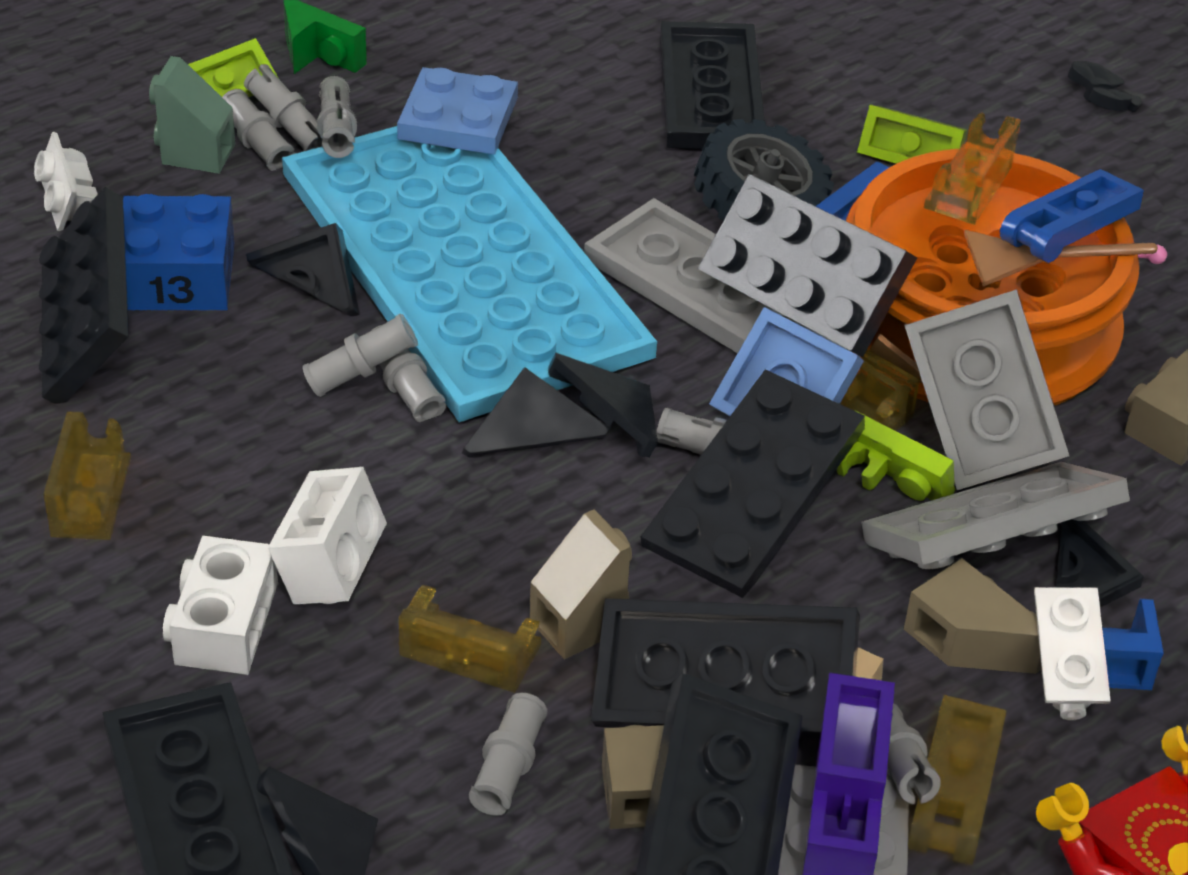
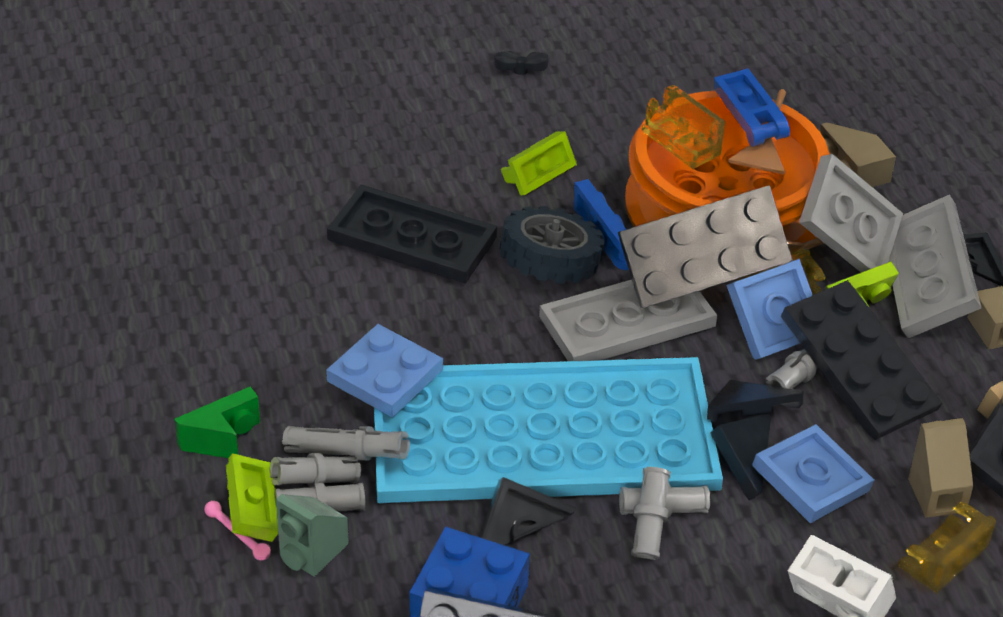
camera: 65 degrees left, 0 degrees up
(520, 483) = (813, 473): none -> medium blue plate

